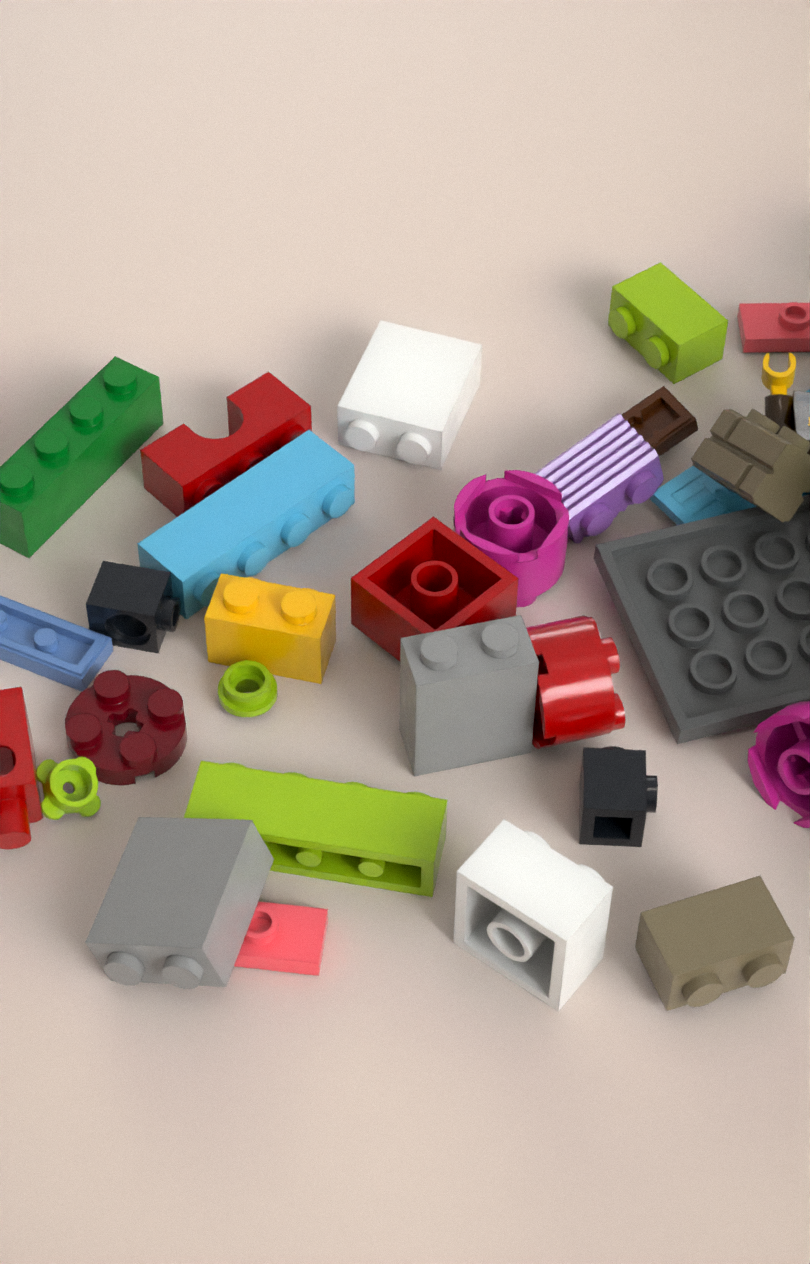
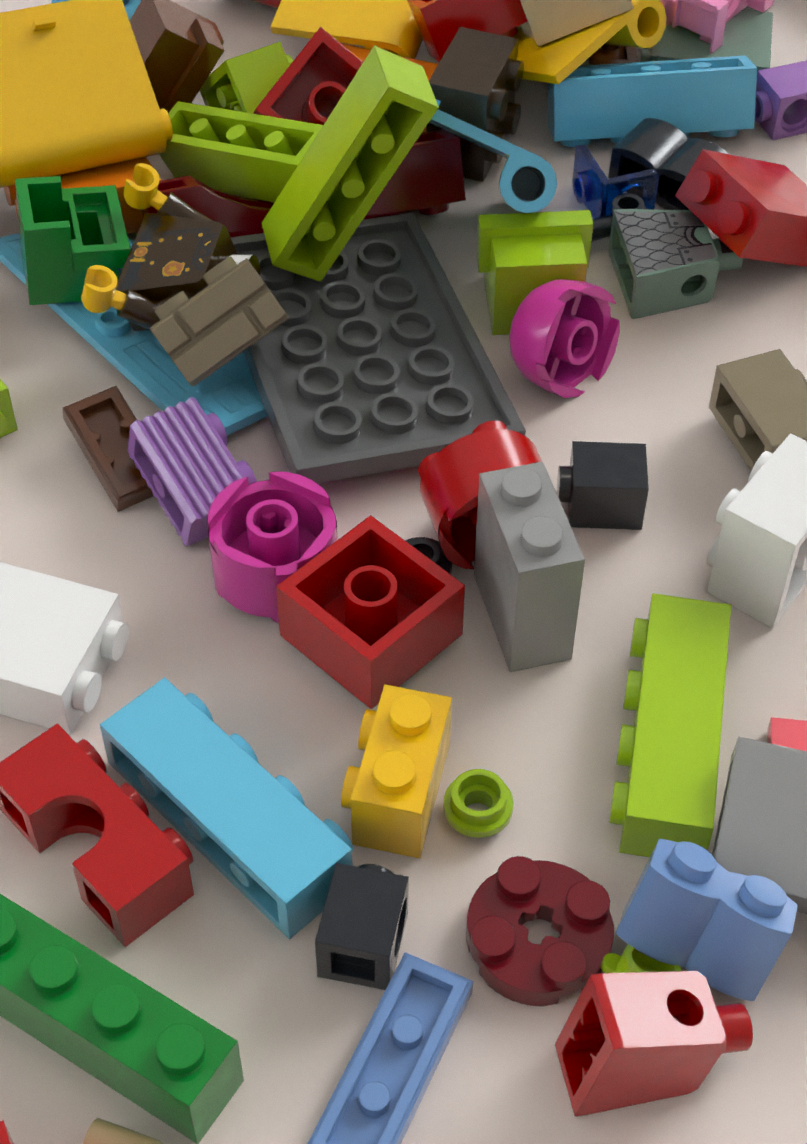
camera: 90 degrees left, 0 degrees up
(102, 813) = (708, 918): none -> medium blue brick

